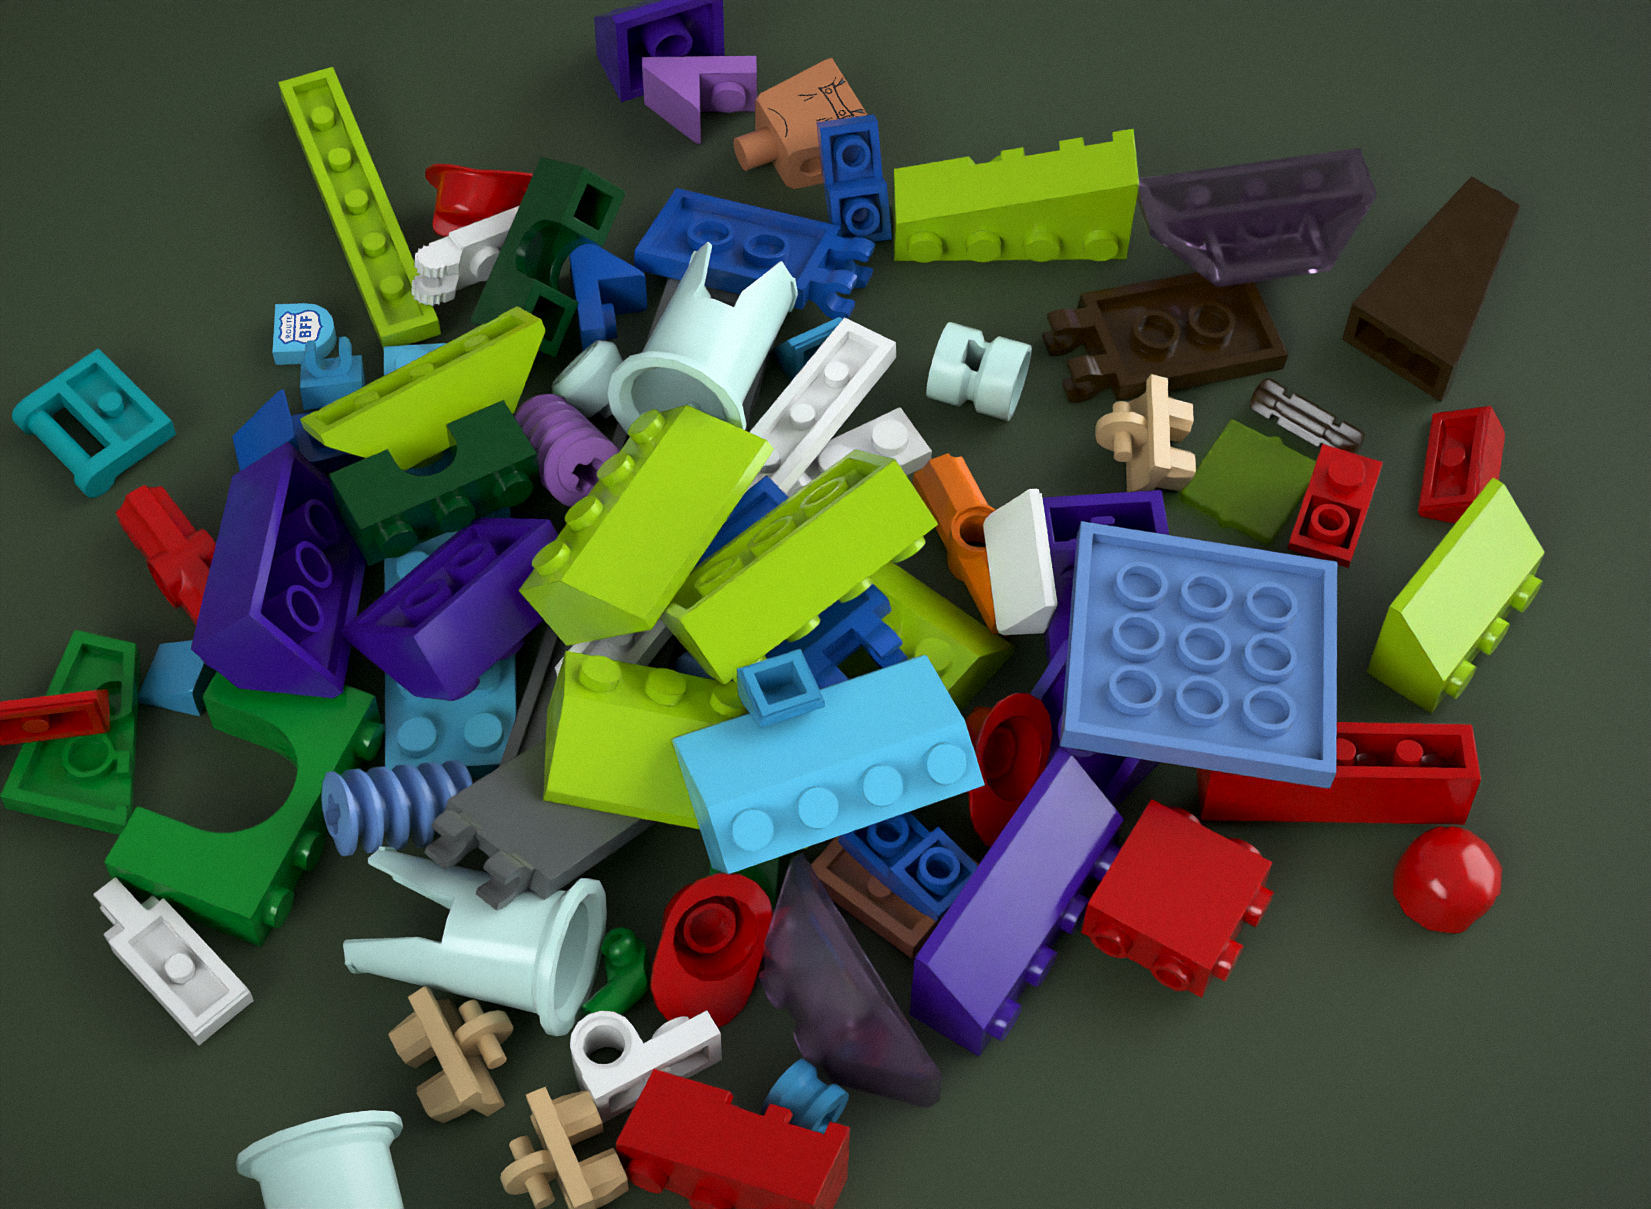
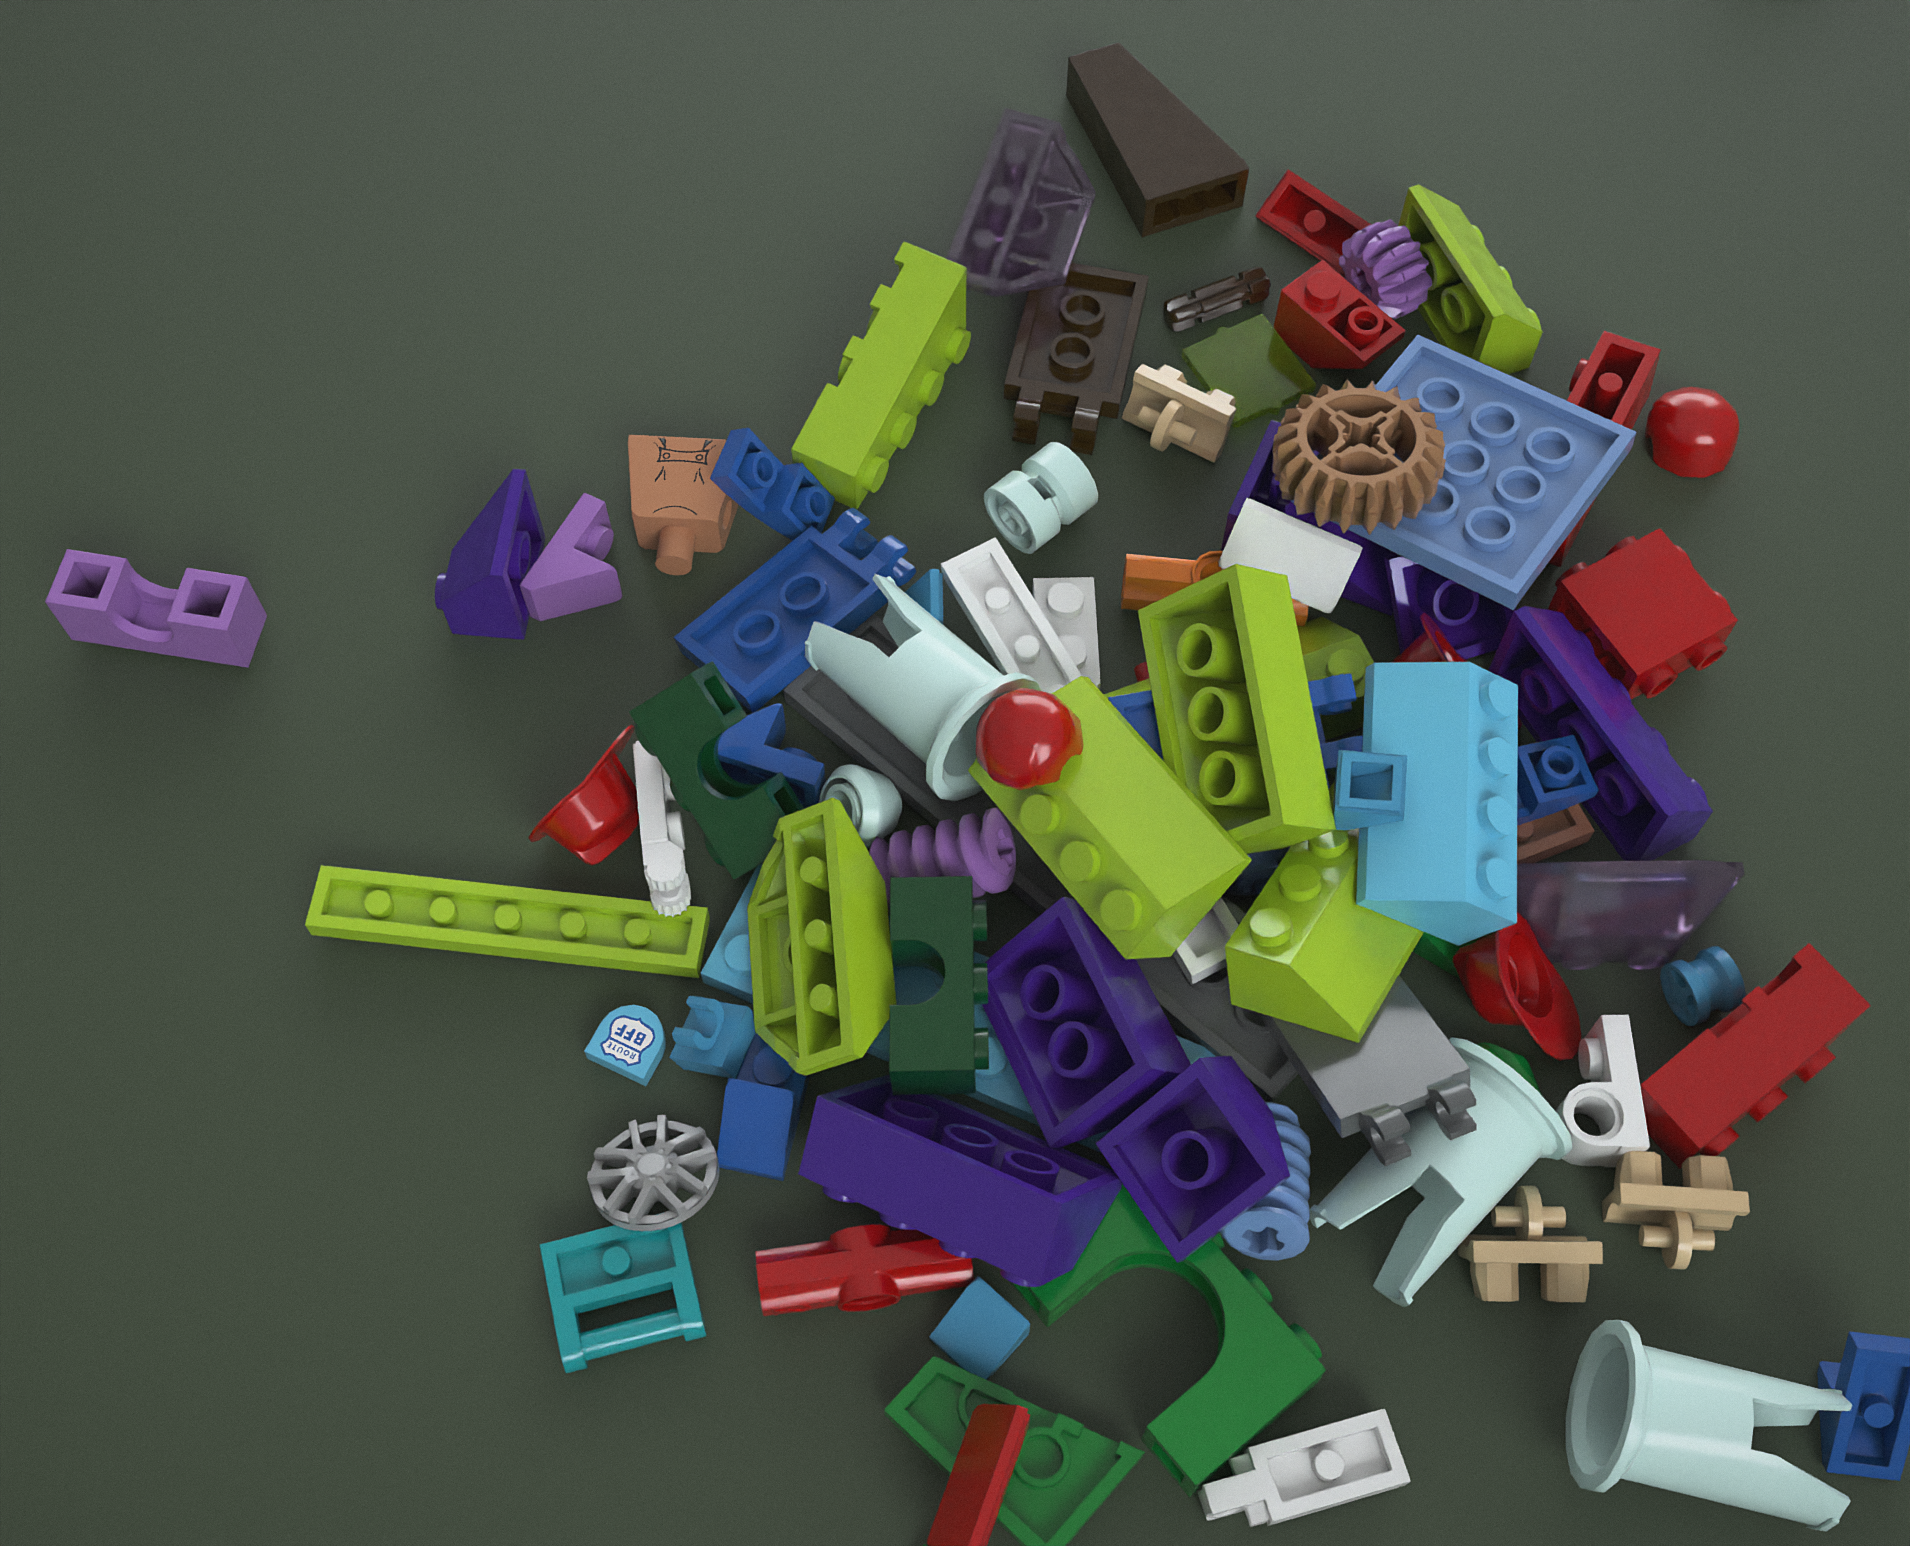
camera: 60 degrees left, 5 degrees up
(205, 393) = (653, 1174): none -> light grey wheel
(385, 720) = (1198, 1153): none -> dark purple slope
(669, 415) = (1027, 738): none -> red hair
(1168, 555) = (1358, 472): none -> medium nougat gear
(1420, 522) = (1387, 267): none -> medium lavender gear

